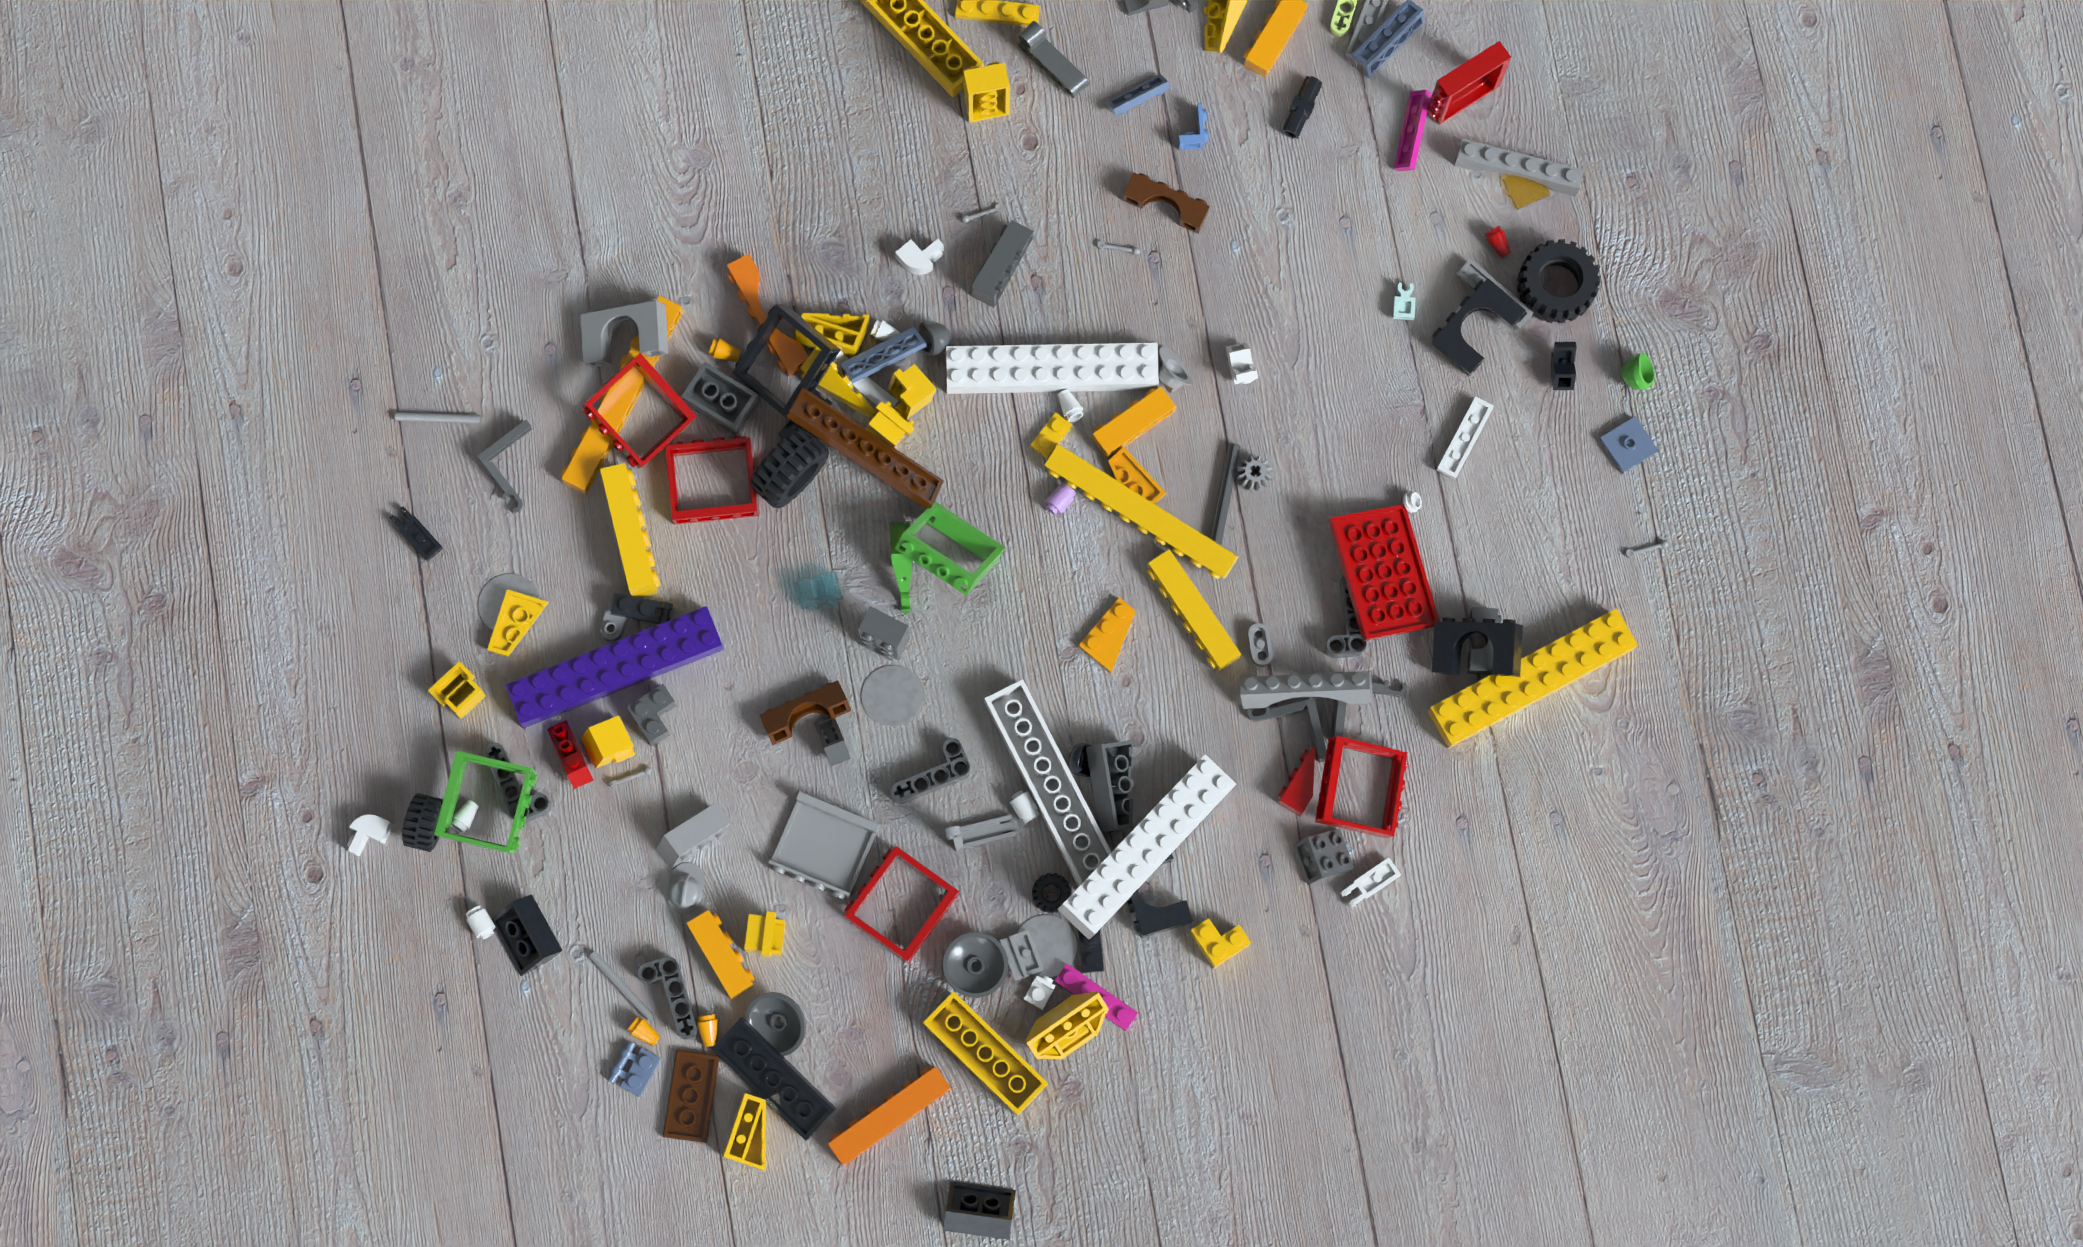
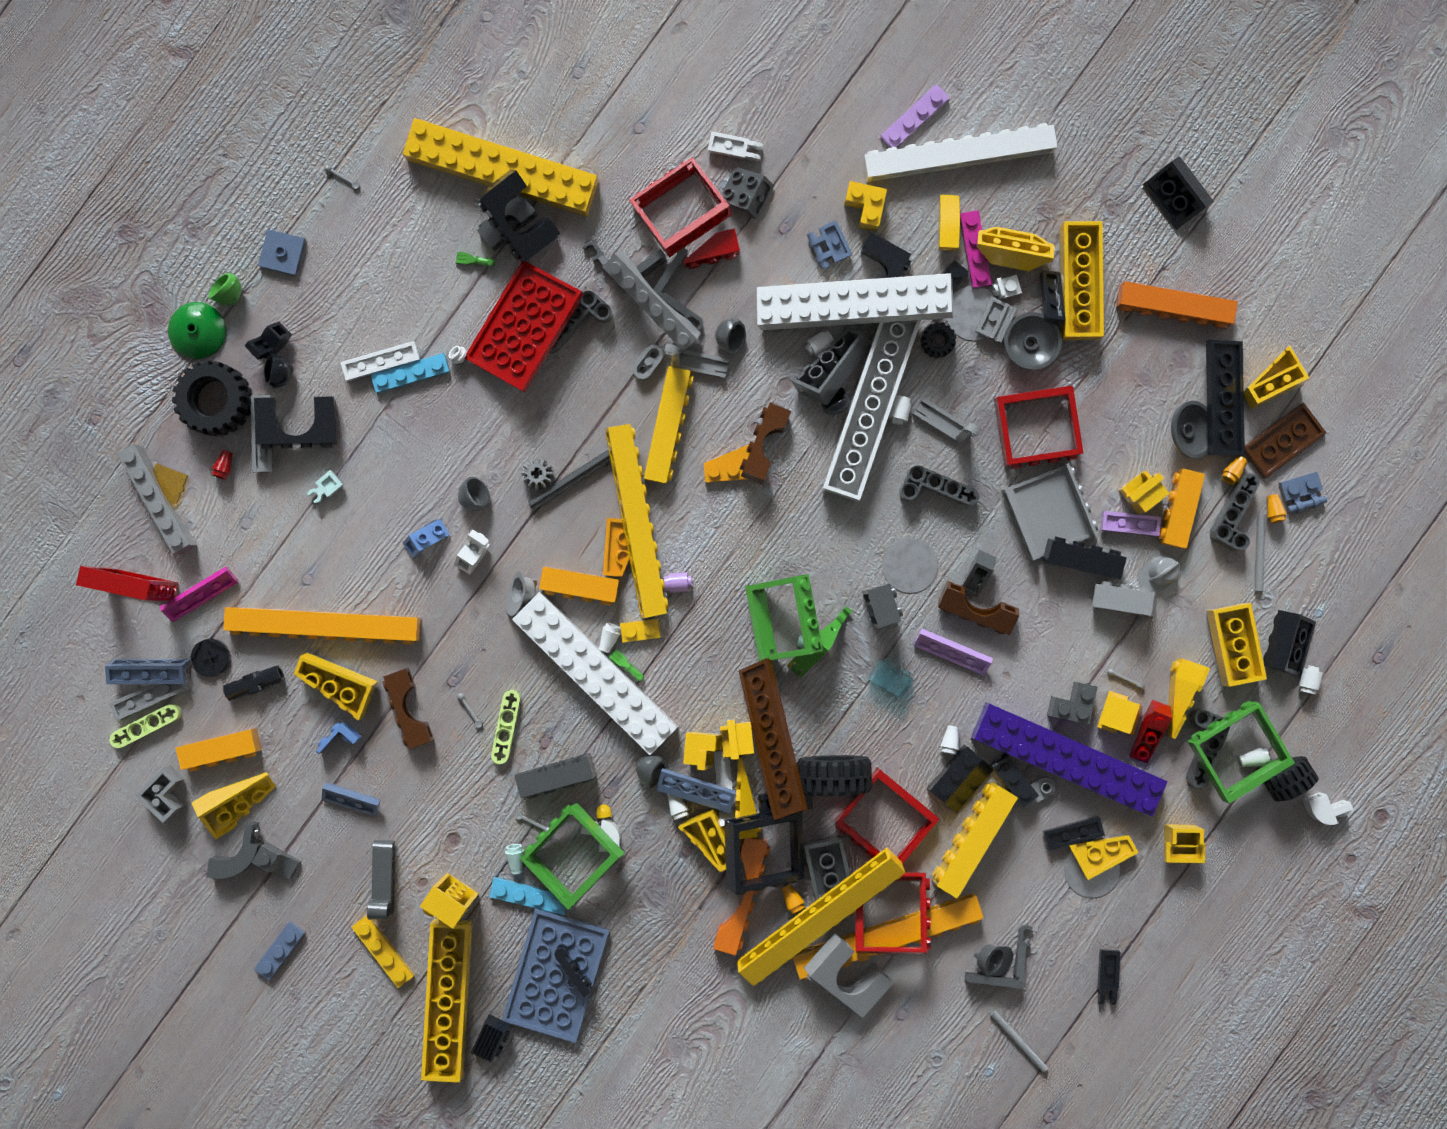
camera: 130 degrees left, 10 degrees up
(519, 457) = (994, 959): none -> dark grey piece
(553, 615) = (1073, 833): none -> black plate
(569, 888) = (1236, 644): none -> yellow brick
(581, 818) = (1184, 682): none -> yellow wedge
(684, 568) = (960, 778): none -> black slope
(691, 354) = (820, 916): none -> yellow brick
(721, 589) = (950, 741): none -> white cone
(749, 902) = (1130, 523): none -> lavender plate
(759, 835) = (1084, 558): none -> black brick
(790, 659) = (952, 652): none -> lavender plate
(840, 134) = (573, 970): none -> black plate
(848, 120) = (542, 991): none -> sand blue plate
(850, 27) = (490, 1037): none -> black brick
(928, 182) = (548, 878): none -> bright green window
(929, 157) = (526, 895): none -> medium azure plate
(937, 273) = (603, 811): none -> yellow hinge
(969, 174) = (514, 854): none -> light aqua cone
(995, 1016) = (1052, 297): none -> black plate
(1042, 398) = (620, 660): none -> bright green piece
(1080, 261) = (508, 727): none -> yellowish green beam
(1115, 696) = (773, 422): none -> reddish brown arch
(1139, 995) = (948, 223): none -> yellow slope
(1142, 794) = (819, 343): none -> white brick
(1187, 1061) = (959, 153): none -> white brick
(1213, 887) = (835, 242): none -> sand blue plate
(1217, 729) = (731, 335): none -> dark grey hat
(1223, 682) = (697, 362): none -> light grey hinge
(1238, 168) = (337, 683): none -> yellow wedge
(1254, 1054) = (915, 117): none -> lavender plate
(1286, 408) = (473, 494): none -> dark grey hat
(1288, 341) = (425, 537): none -> medium blue bracket
(1296, 200) = (321, 624): none -> light orange brick
(1354, 94) = (210, 657): none -> black tile
(1433, 452) = (410, 373): none -> medium azure plate
(1483, 584) = (468, 259): none -> bright green piece
(1533, 350) = (277, 371): none -> black hat
(1622, 333) = (208, 332): none -> green dish

